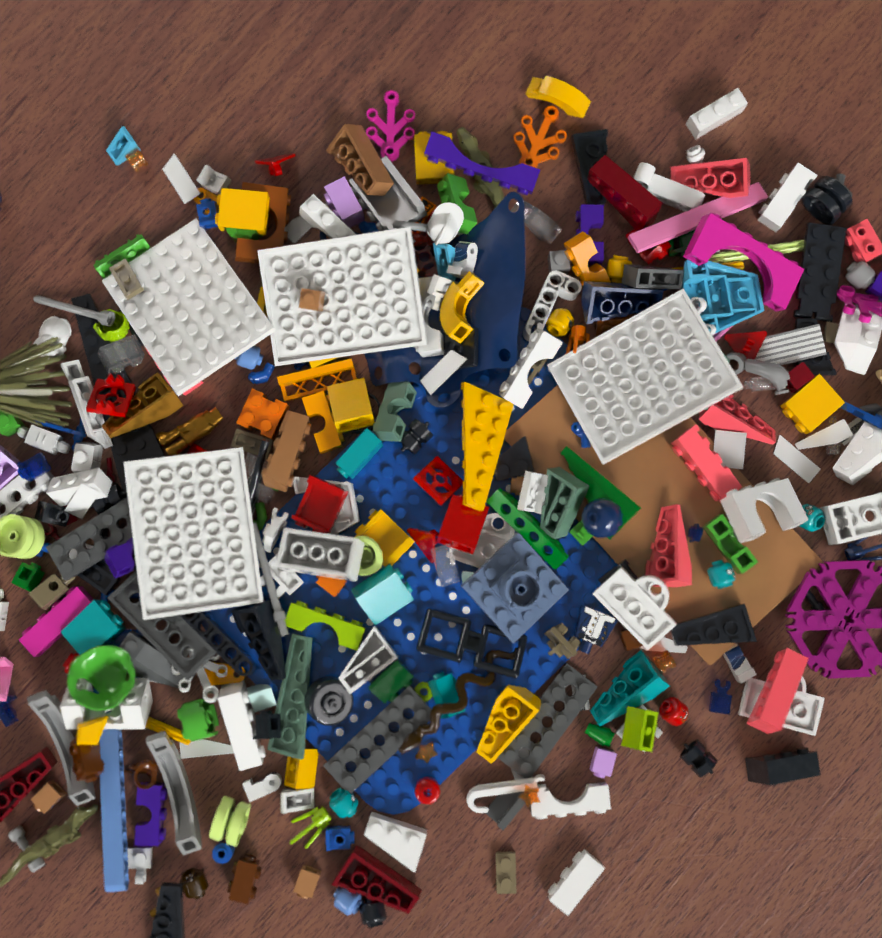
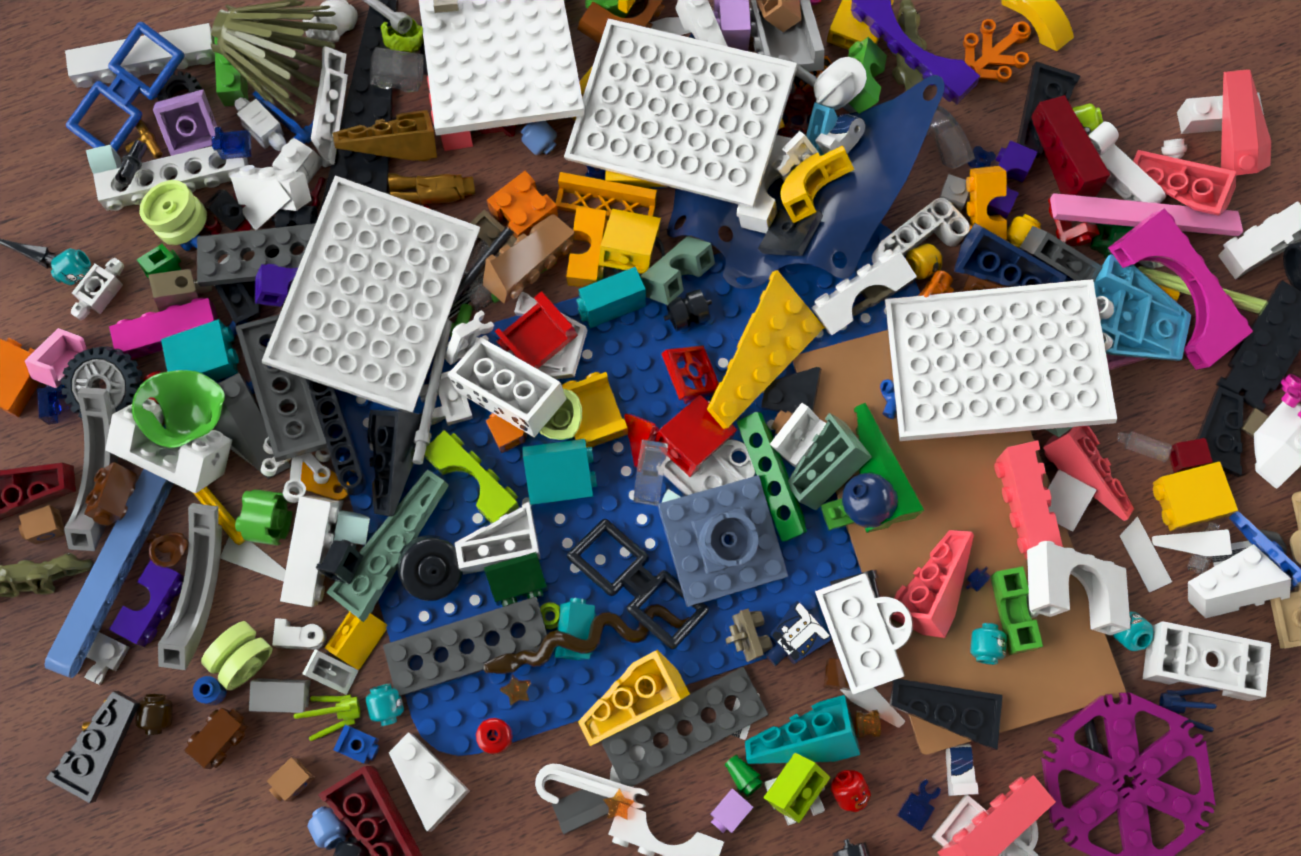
camera: 25 degrees right, 10 degrees down
(35, 668) = (106, 364): none -> wheel
(91, 731) = (132, 463): yellow piece -> none
(109, 407) = (348, 110): red piece -> none
(261, 376) = (544, 167): blue arm -> none
(270, 831) = (279, 695): none -> light grey hinge
(311, 299) = (643, 95): medium nougat brick -> none
(442, 371) = (756, 247): white sticker -> none
(570, 222) = (980, 153): none -> clear blue plate
(627, 161) = (1089, 116): none -> lime head
(738, 119) = (1244, 128): none -> coral wedge
(746, 343) = (1141, 391): red piece -> none
(773, 372) = (1160, 430): light grey piece -> none
(793, 346) = (1189, 414): sticker -> none

